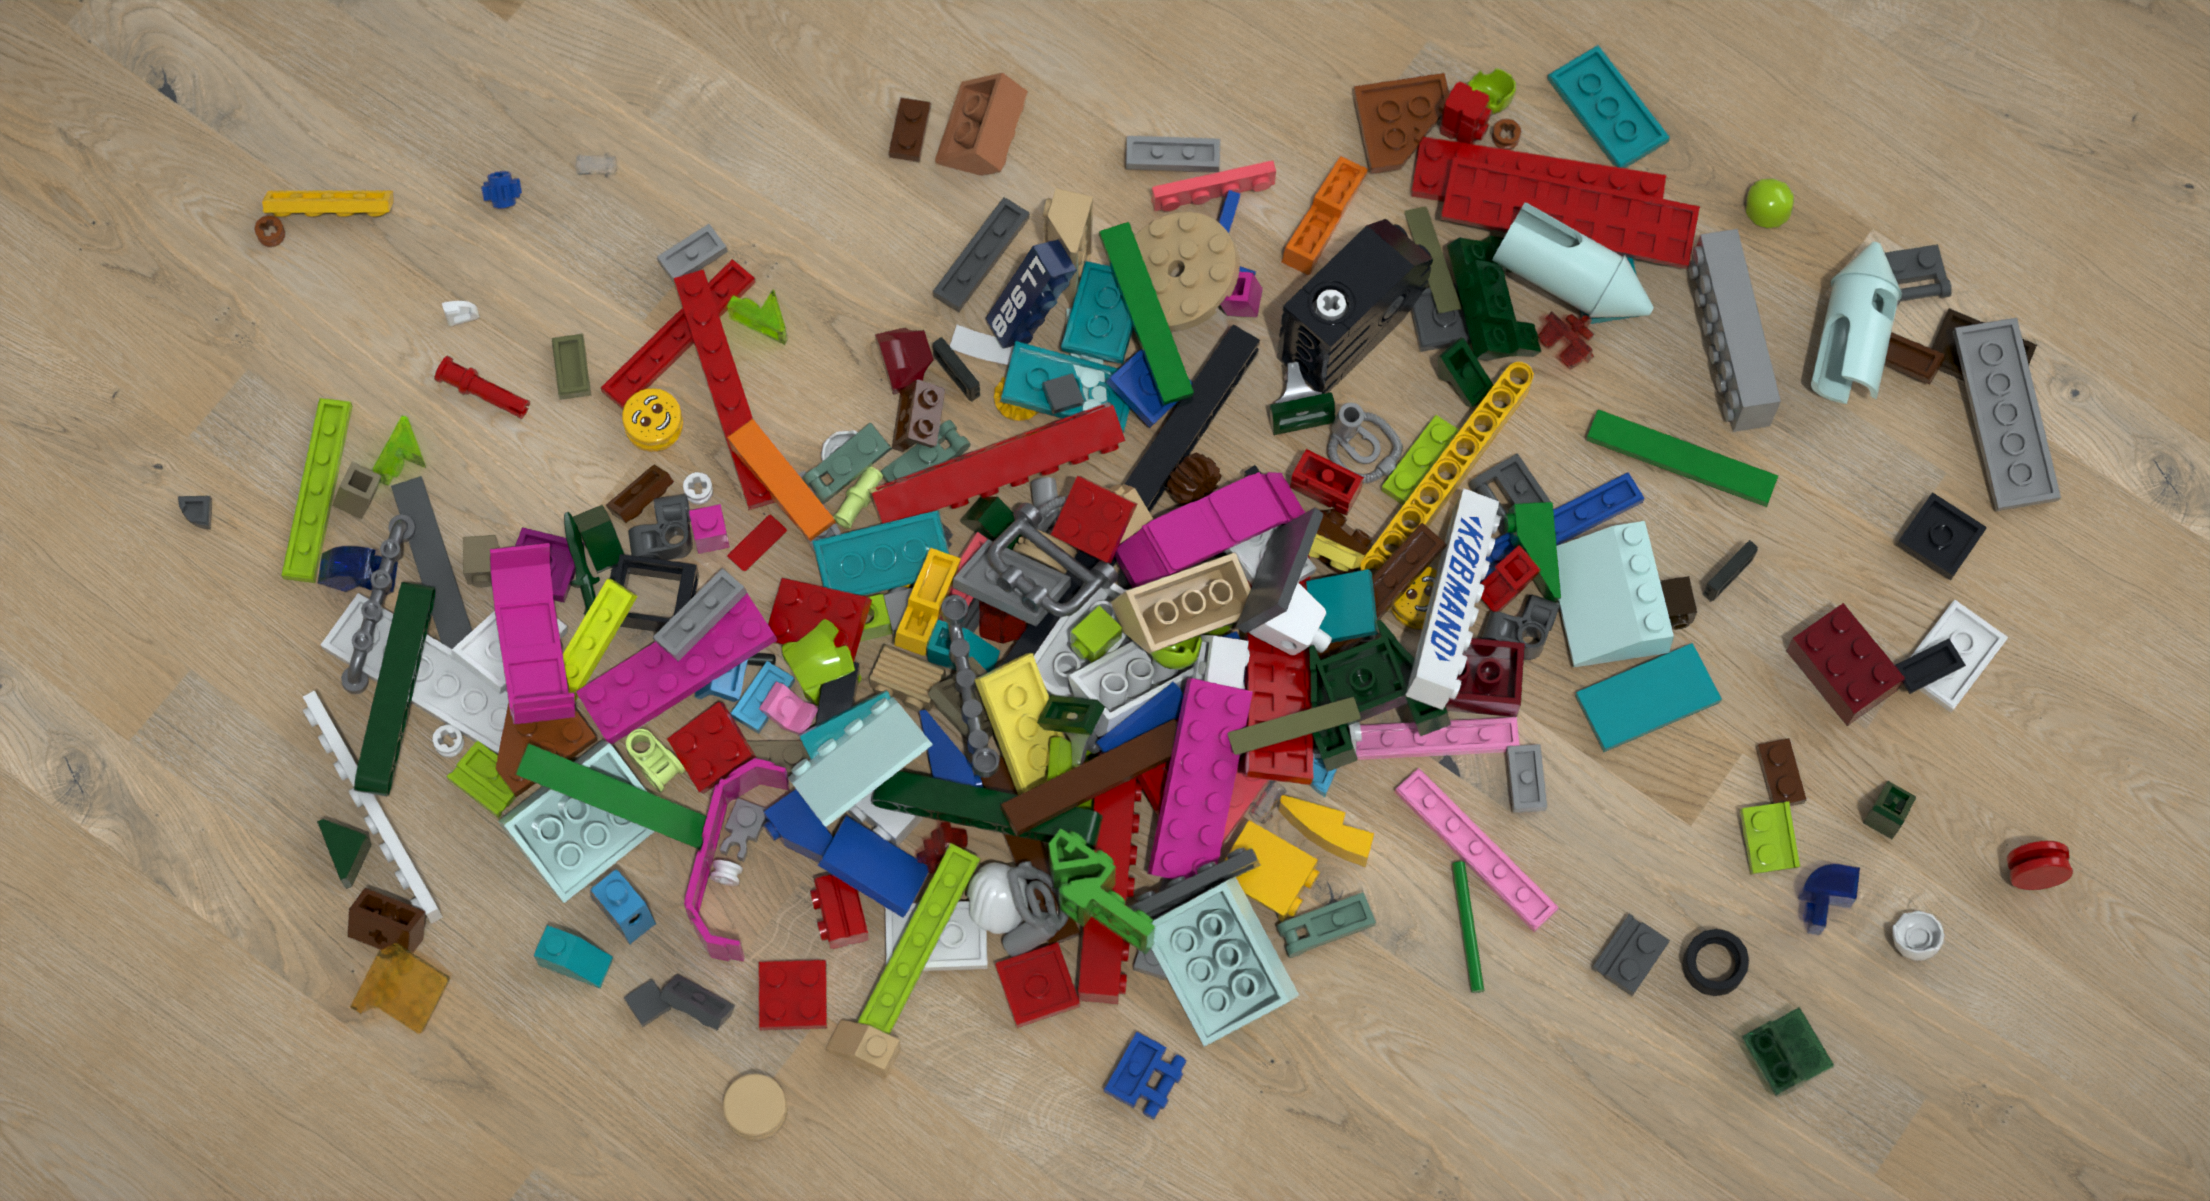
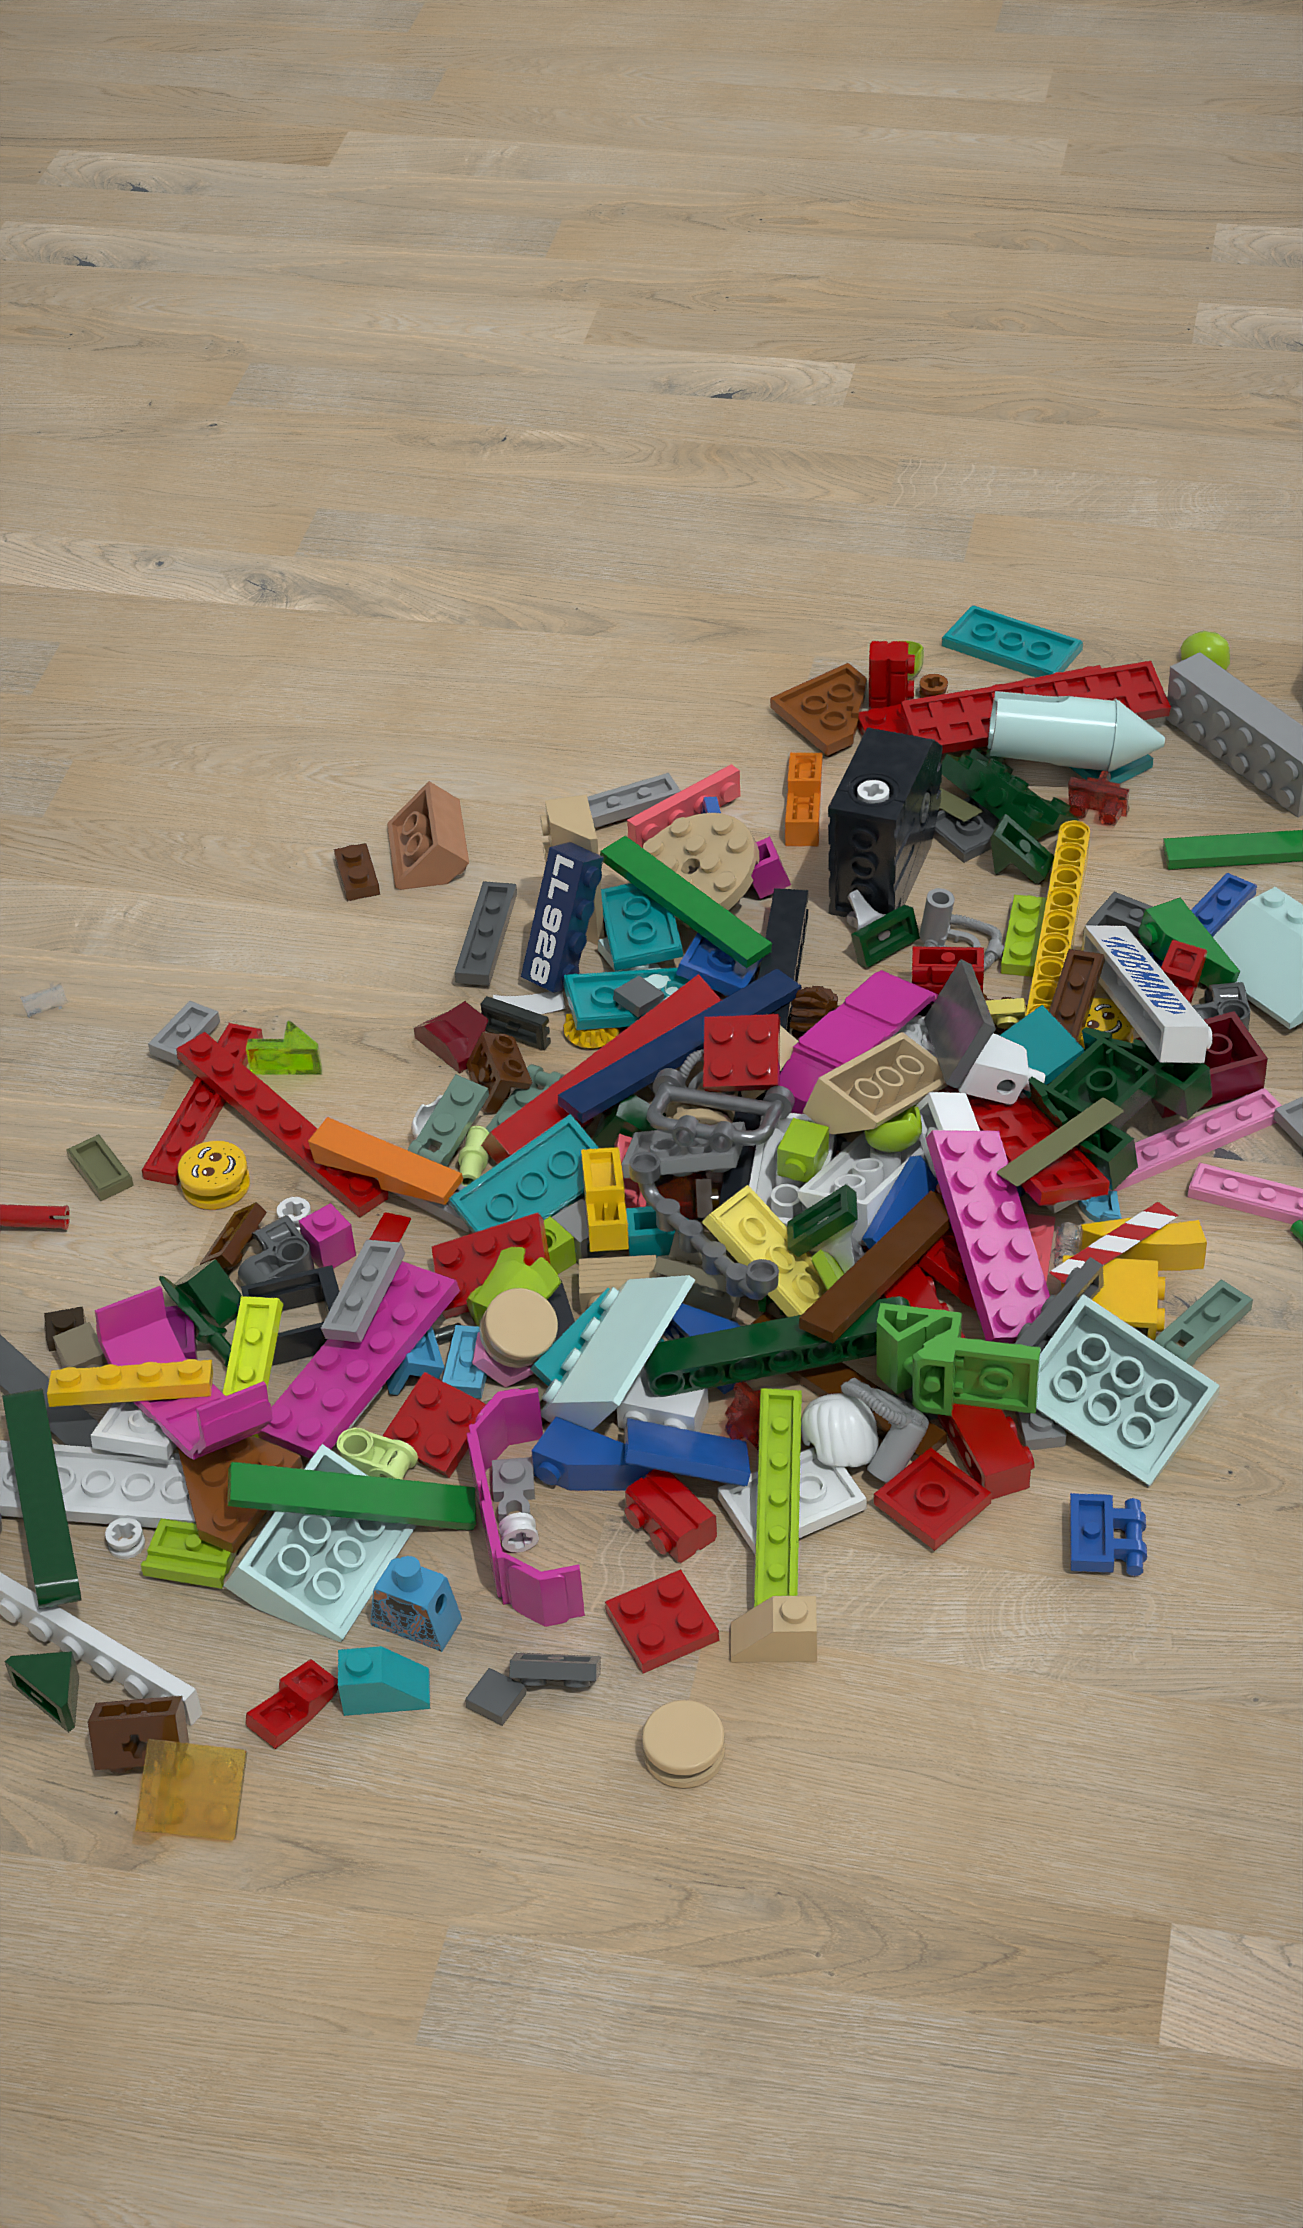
camera: 20 degrees left, 25 degrees down
(482, 519) = (61, 1321): none -> dark brown plate
(498, 615) = (130, 1383): none -> yellow plate
(505, 943) = (299, 1700): none -> red slope
(801, 701) = (518, 1327): none -> tan head
(1004, 637) = (704, 1199): none -> dark brown plate
(1061, 470) = (671, 1048): none -> dark blue tile
(1295, 827) = (1119, 1239): none -> sticker

